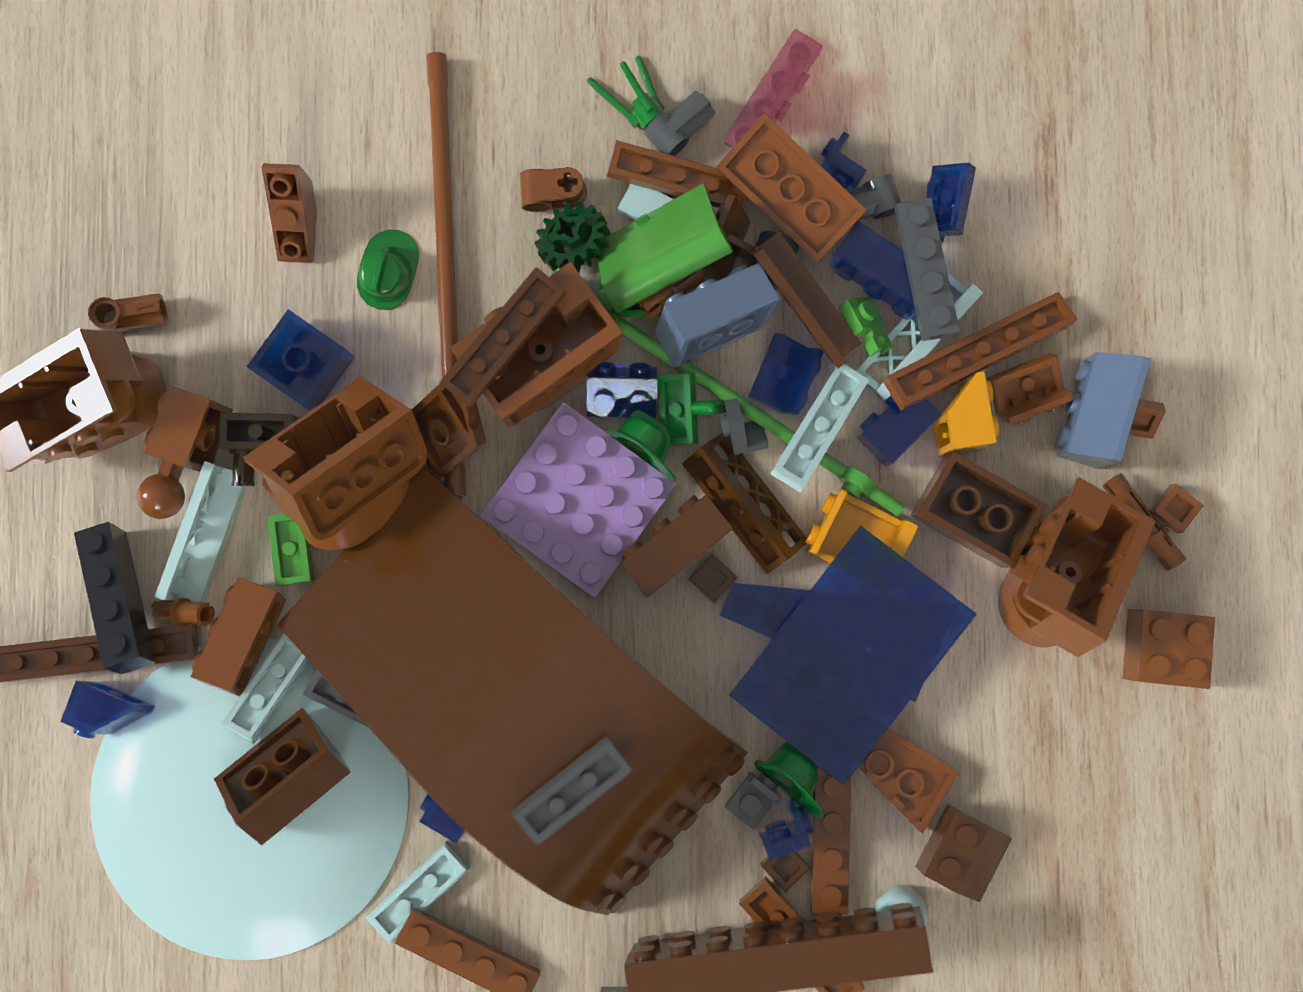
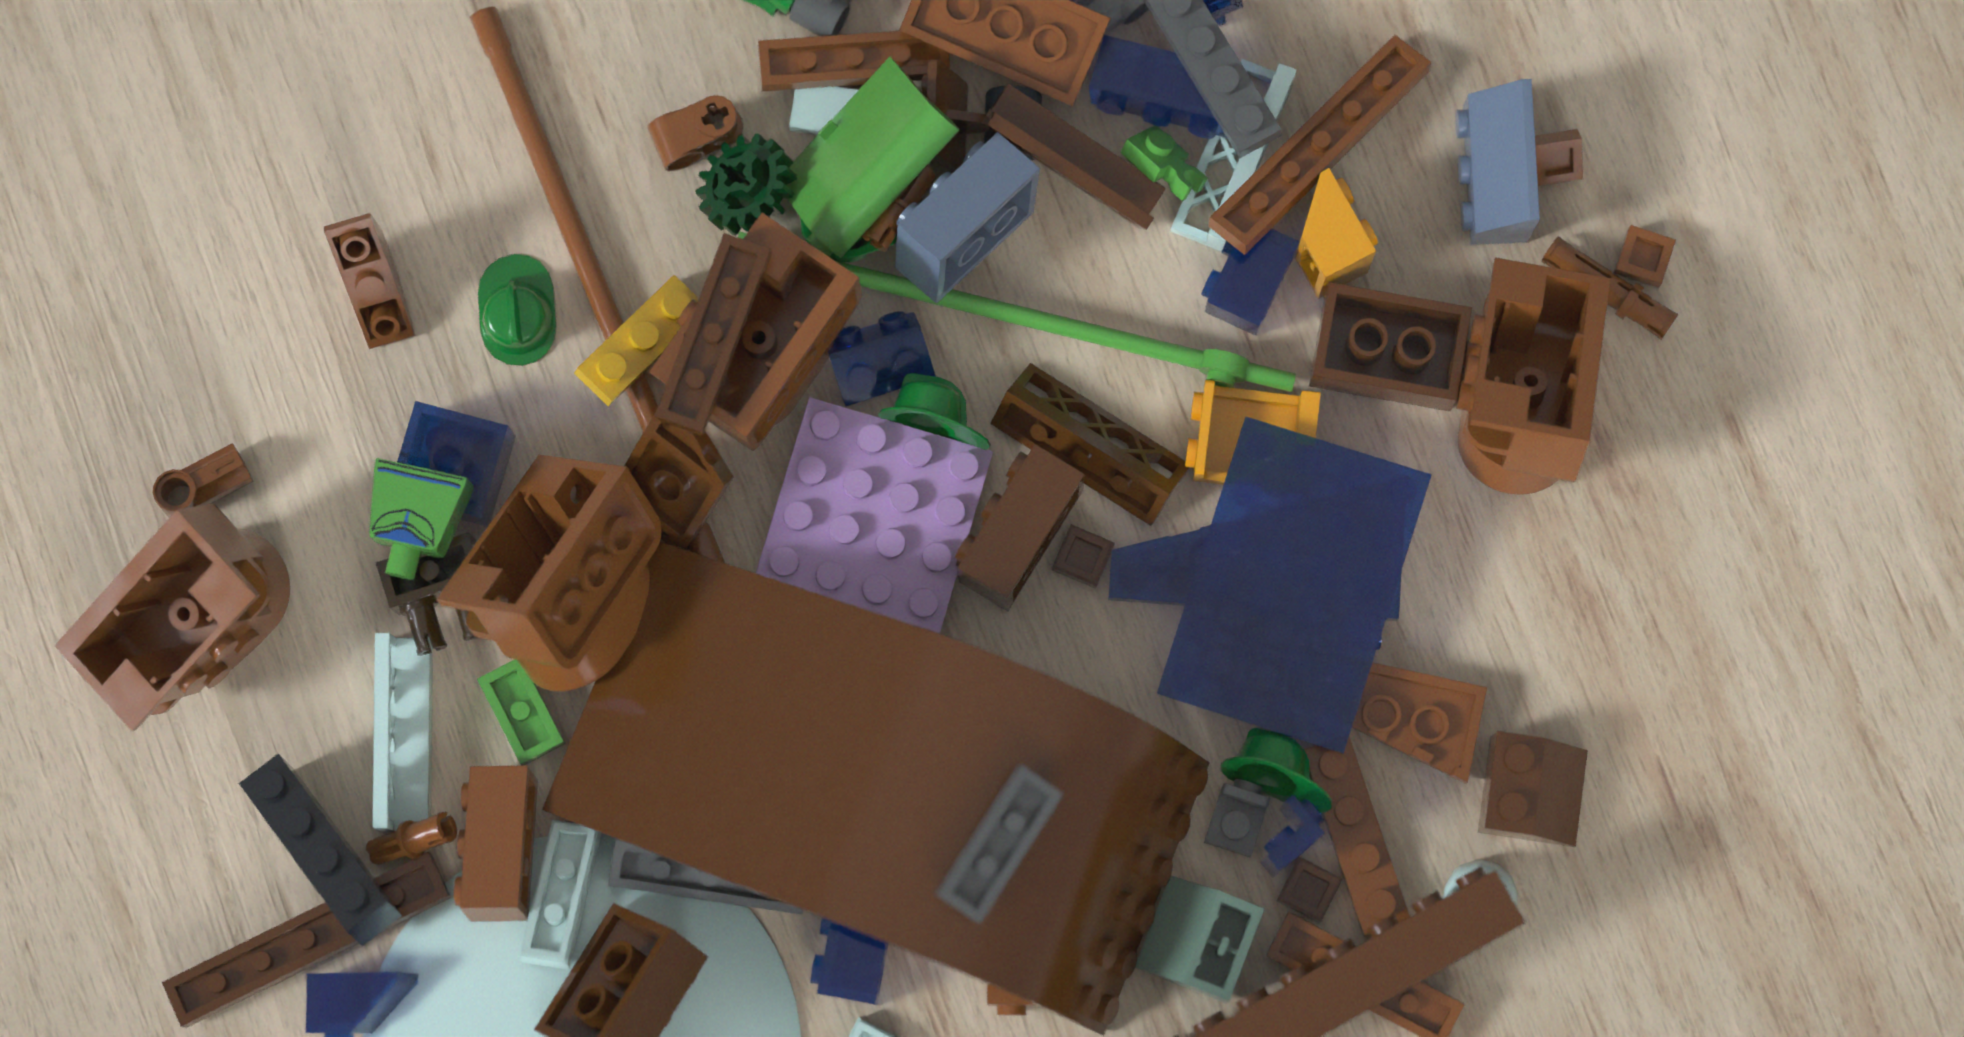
camera: 15 degrees left, 5 degrees down
(183, 438) = (336, 624): dark orange brick -> none
(255, 389) = (415, 513): none -> bright green torso
(455, 322) = (636, 342): none -> yellow plate
(680, 409) = (963, 352): green plate -> none
(698, 878) = (1199, 938): none -> sand green slope
(743, 436) = (1058, 359): dark grey bracket -> none
(786, 375) = (1084, 263): clear blue bracket -> none
(819, 427) = (1150, 312): light aqua plate -> none
(1029, 390) = (1401, 172): dark orange bracket -> none
(1168, 648) = (1696, 435): dark orange brick -> none

